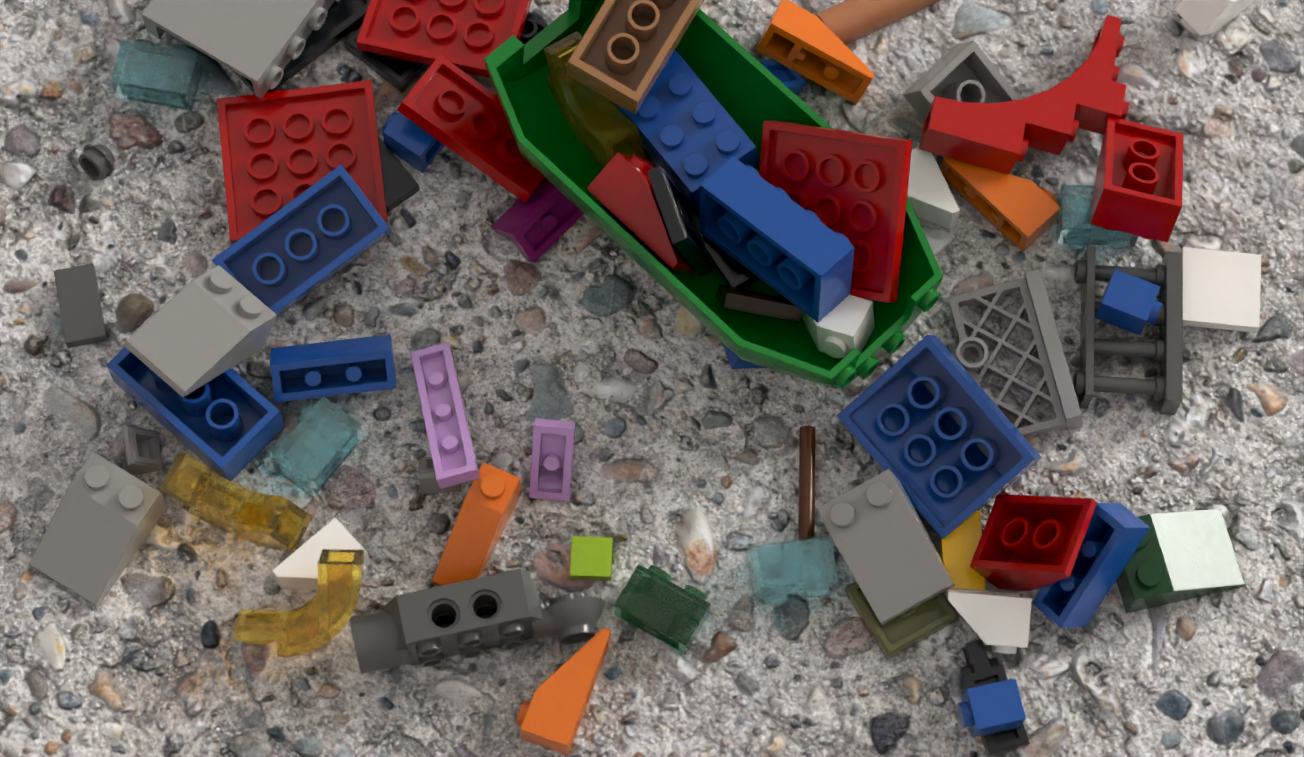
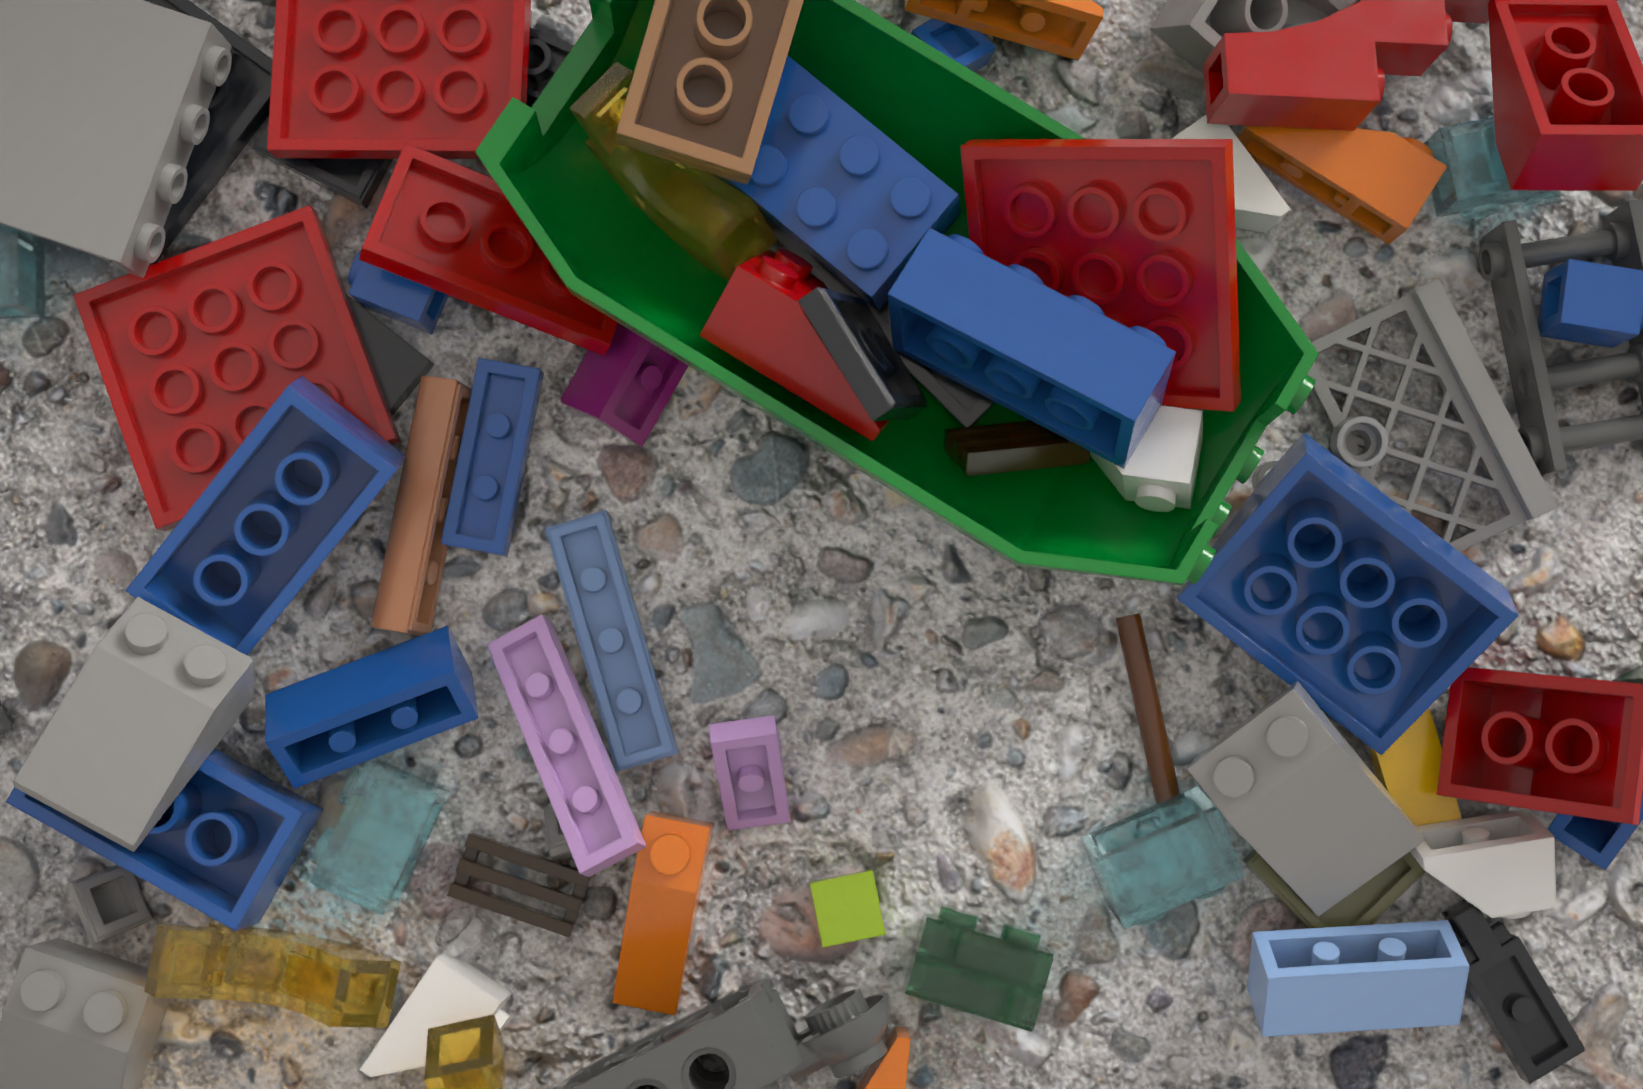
camera: 10 degrees left, 15 degrees up
(365, 480) = (469, 867): none -> dark brown tile
(394, 265) = (414, 548): none -> nougat brick
(442, 248) = (492, 457): none -> blue plate
(486, 371) = (612, 640): none -> medium blue tile
(894, 664) = (1357, 978): none -> light blue brick
(991, 708) = (1529, 1025): blue brick -> none

